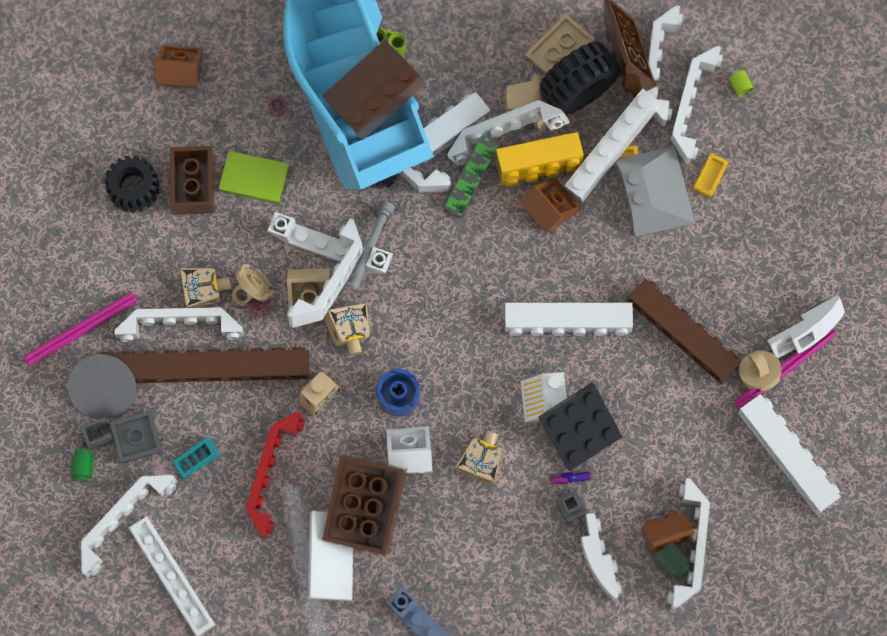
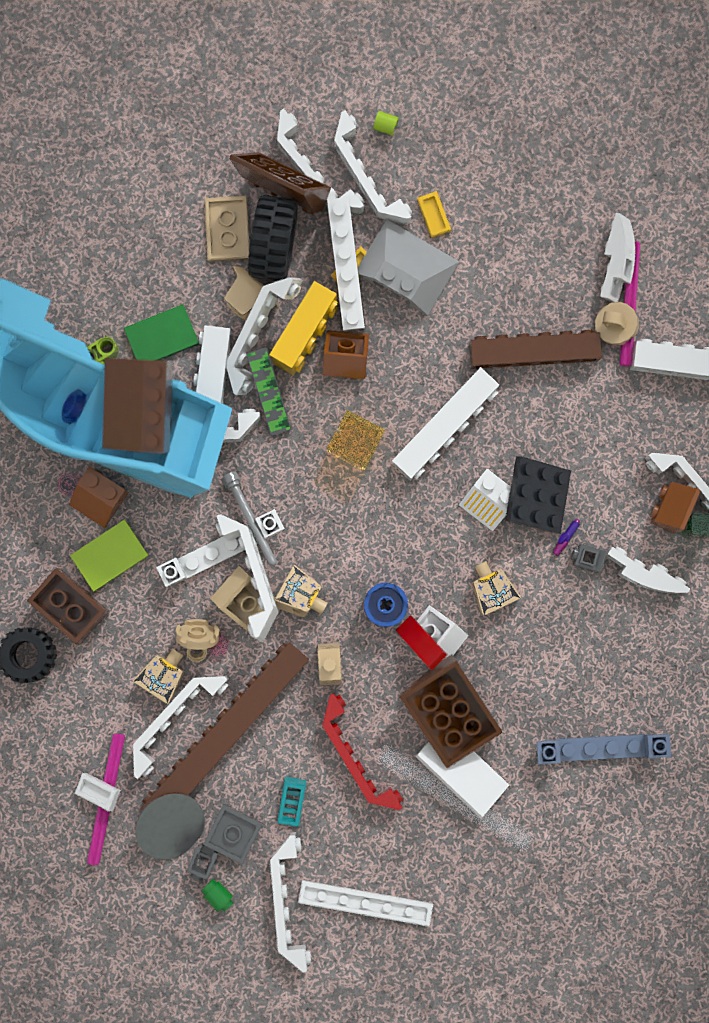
camera: 50 degrees left, 10 degrees up
(80, 317) = (97, 791): none -> white tile
(287, 131) = (97, 497): none -> dark orange slope
(332, 52) = (73, 406): none -> clear blue gear
(395, 439) = (421, 642): none -> red tile
(443, 72) = (162, 335): none -> green tile
(495, 269) = (357, 440): none -> clear yellow piece

